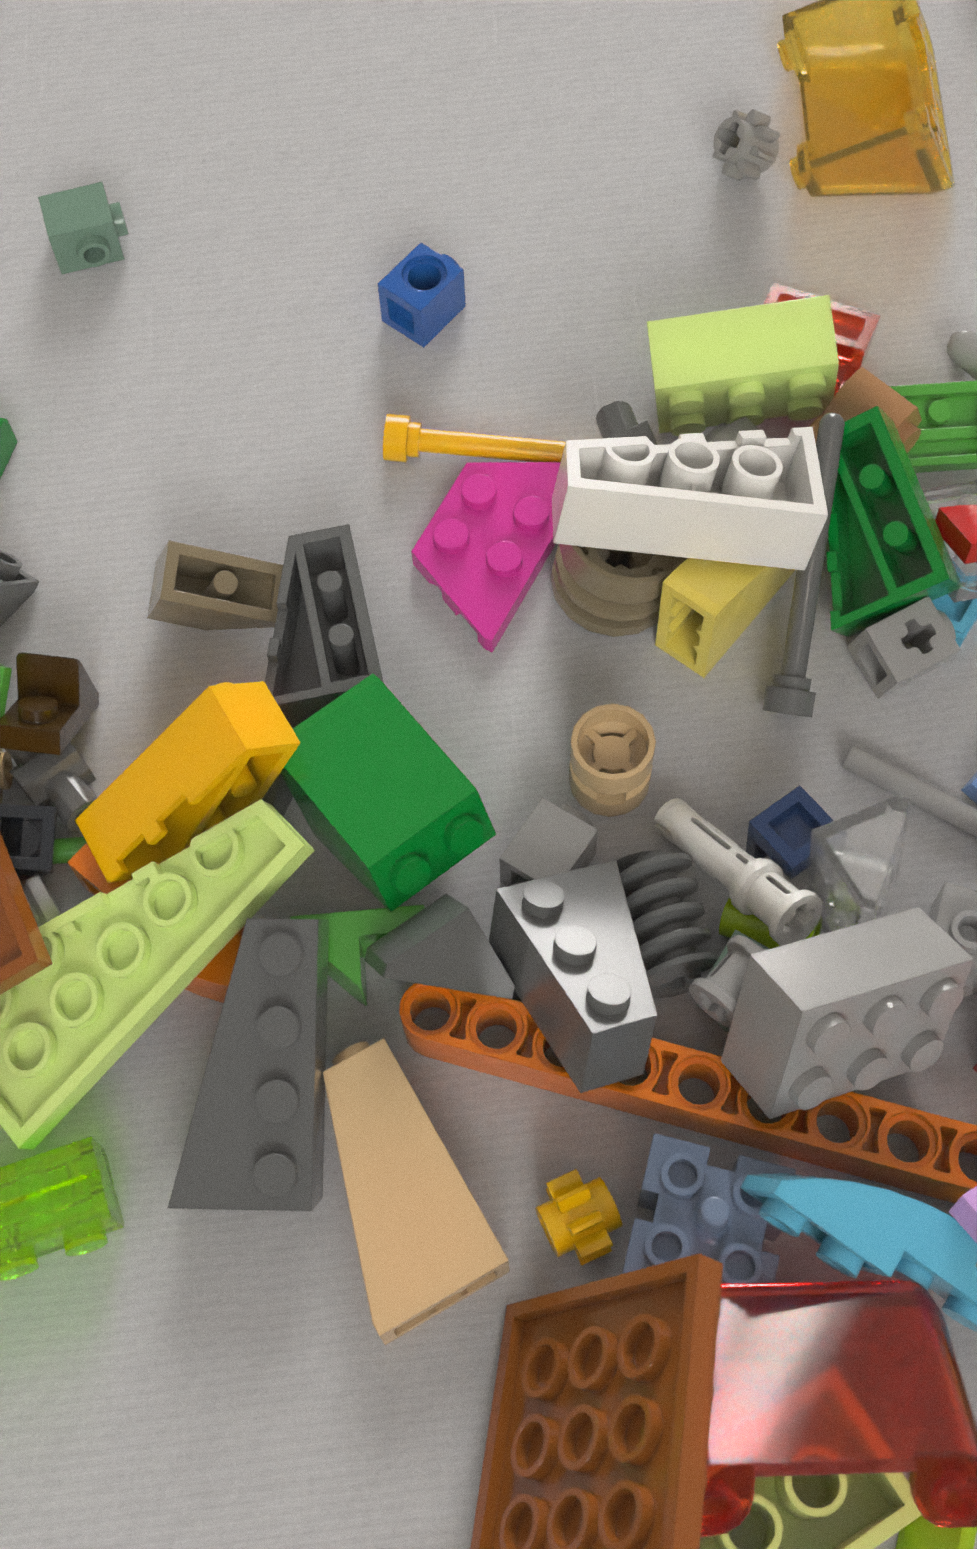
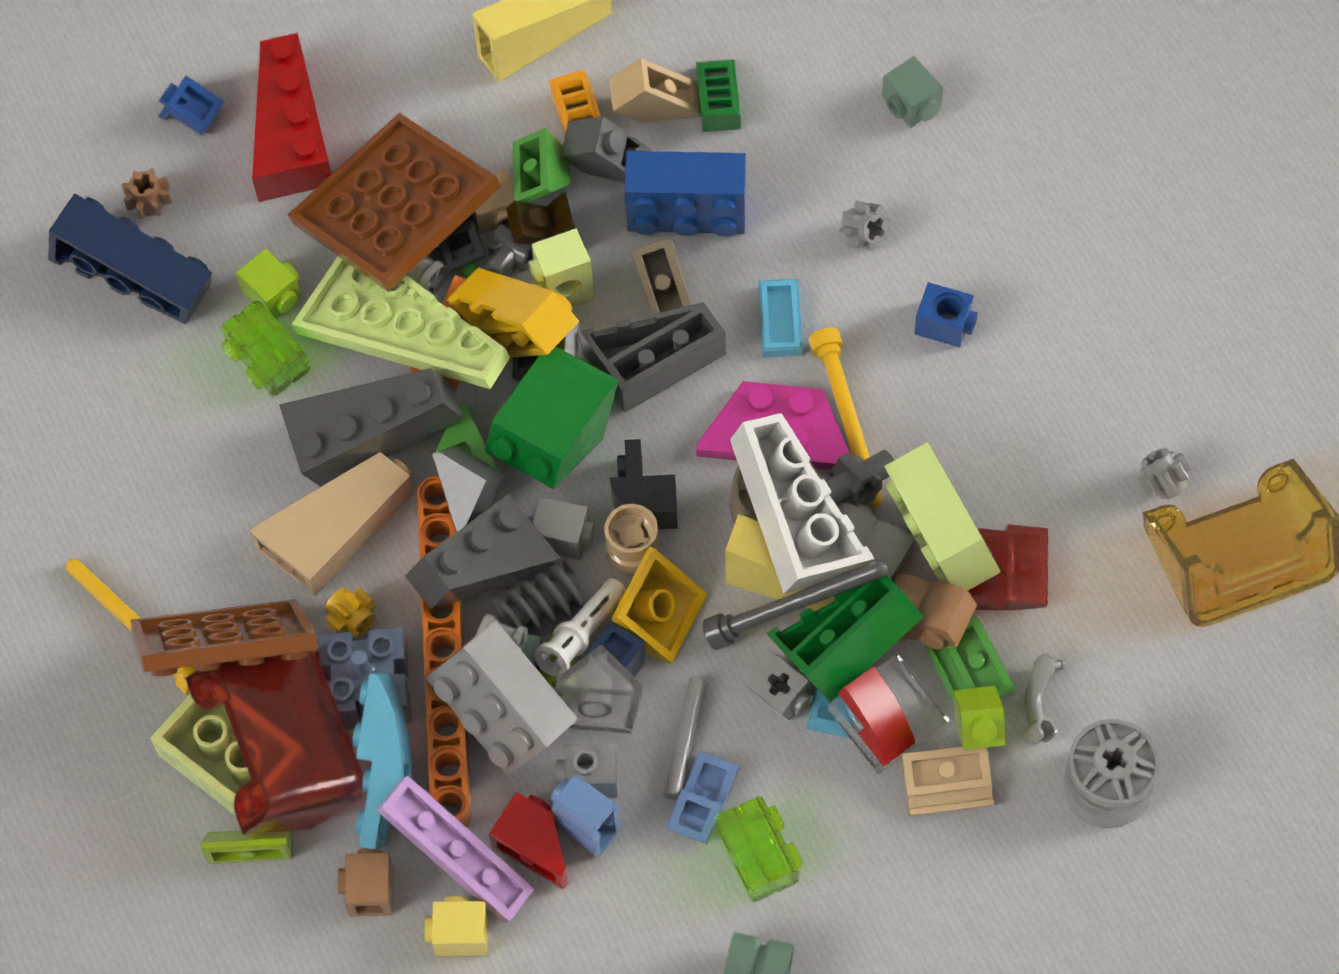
camera: 70 degrees right, 0 degrees up
(94, 513) = (685, 192): none -> blue brick
(132, 698) = (563, 267): none -> yellowish green brick
(250, 335) = (864, 225): none -> light grey gear
(331, 482) = (780, 318): none -> medium azure tile
(530, 737) = (653, 492): none -> black brick
(721, 768) = (659, 606): none -> yellow slope

